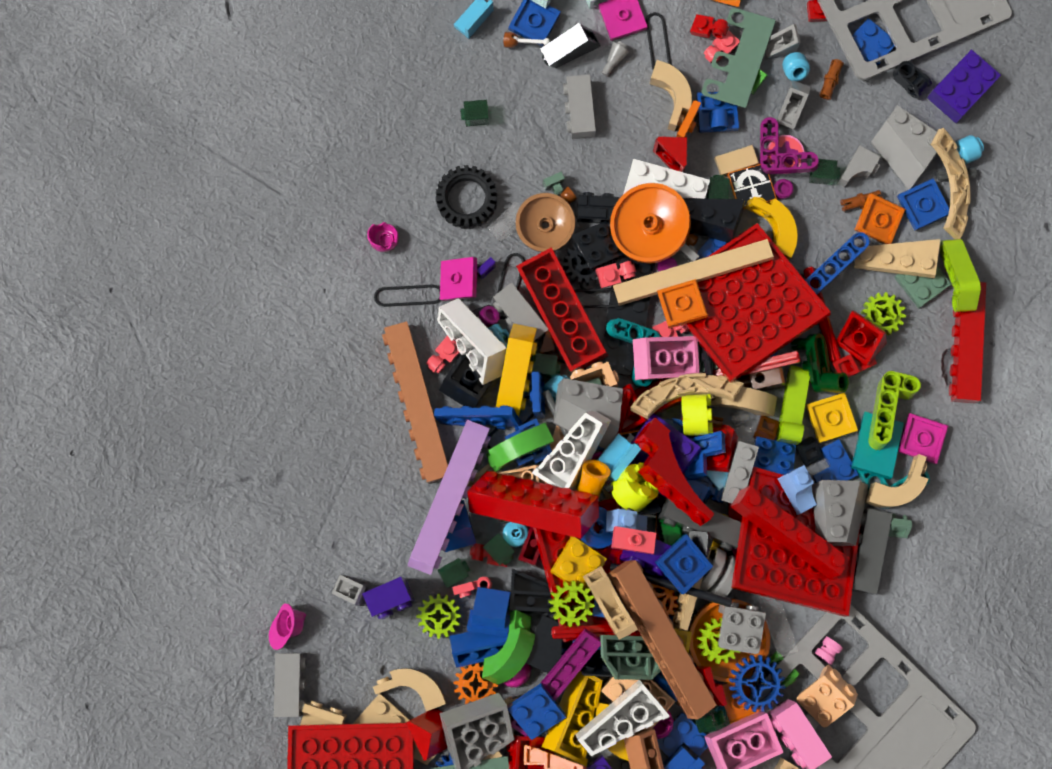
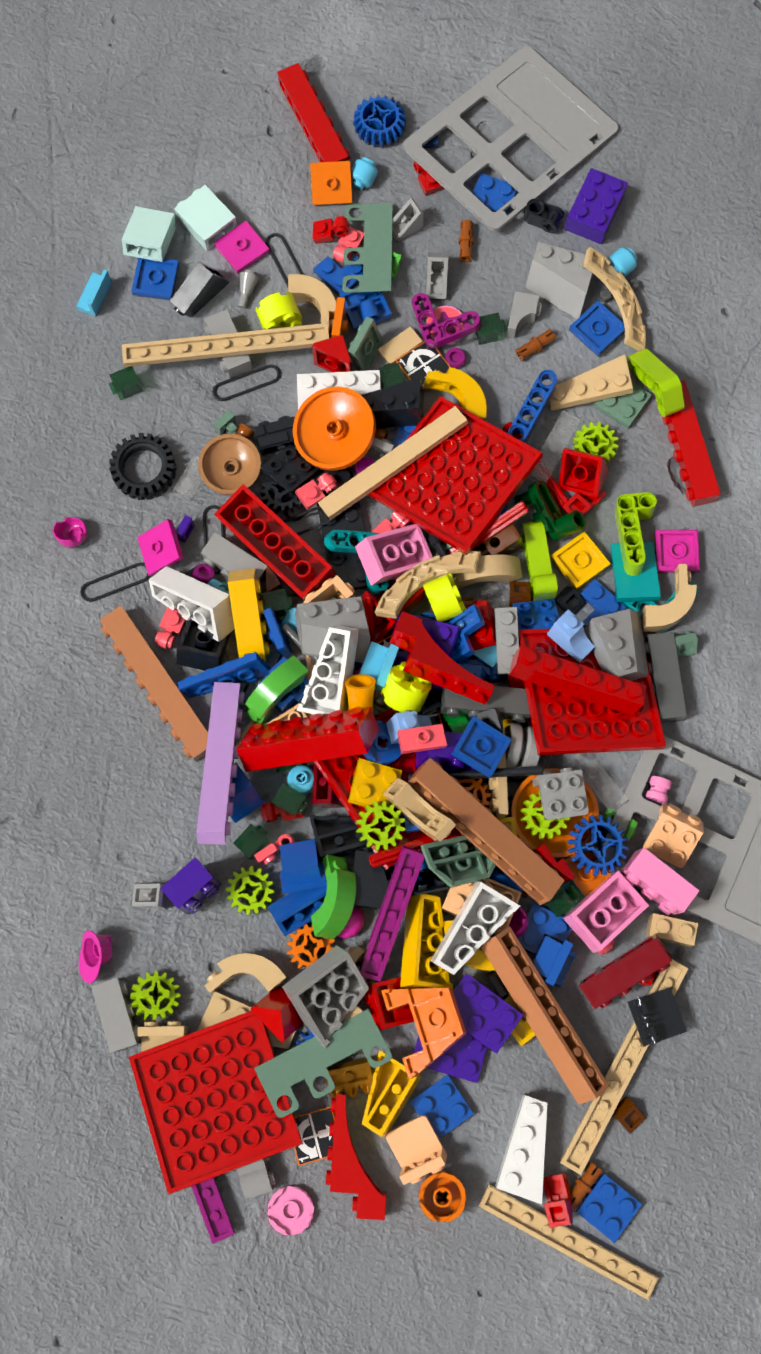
camera: 15 degrees left, 5 degrees down
(315, 676) = (163, 996): none -> lime gear
(511, 40) = (138, 302): hinge -> none
(536, 711) = (381, 950): blue plate -> none
(577, 109) = (223, 345): none -> tan plate
(584, 140) = (248, 390): none -> black piece
(635, 95) = (279, 311): none -> neon yellow brick
(682, 303) = (392, 495): orange plate -> none
(698, 72) = (333, 275): none -> blue plate
(704, 152) = (365, 345): none -> sand green plate
(796, 66) = (427, 238): medium azure head -> none
(846, 303) = (553, 446): none -> clear tile
(879, 219) = (560, 354): orange plate -> none

